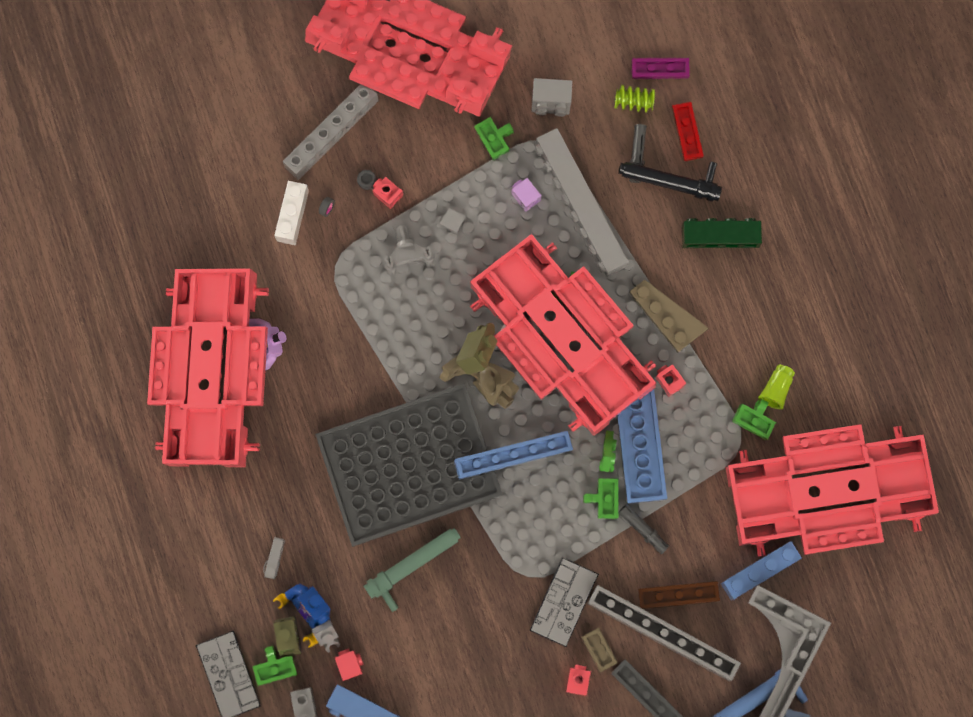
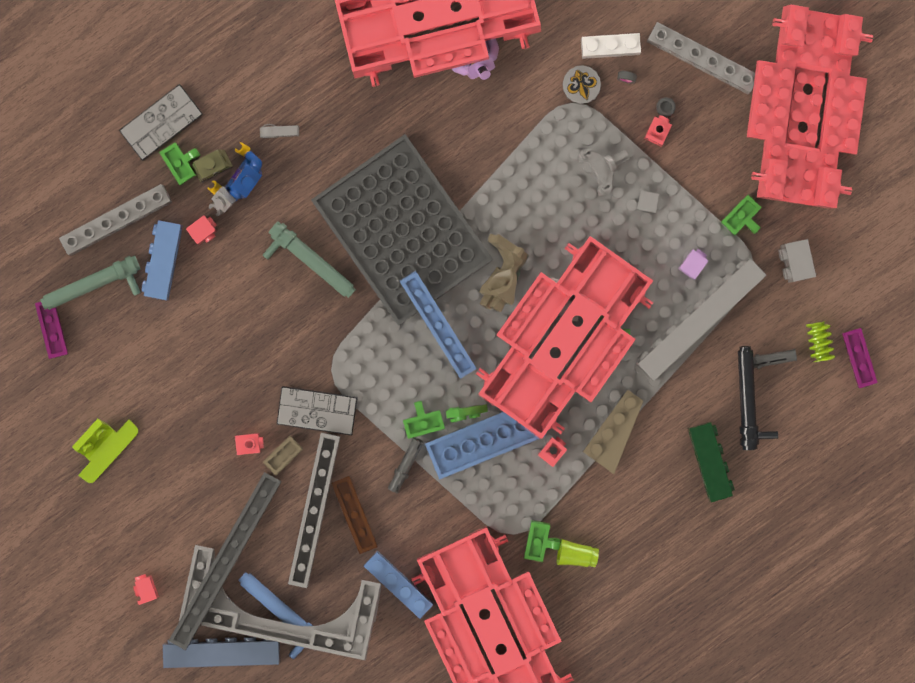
camera: 70 degrees right, 10 degrees up
(320, 252) = (581, 84): none -> tile
(477, 349) = (525, 262): olive brick -> none
(687, 131) = (803, 401): red plate -> none

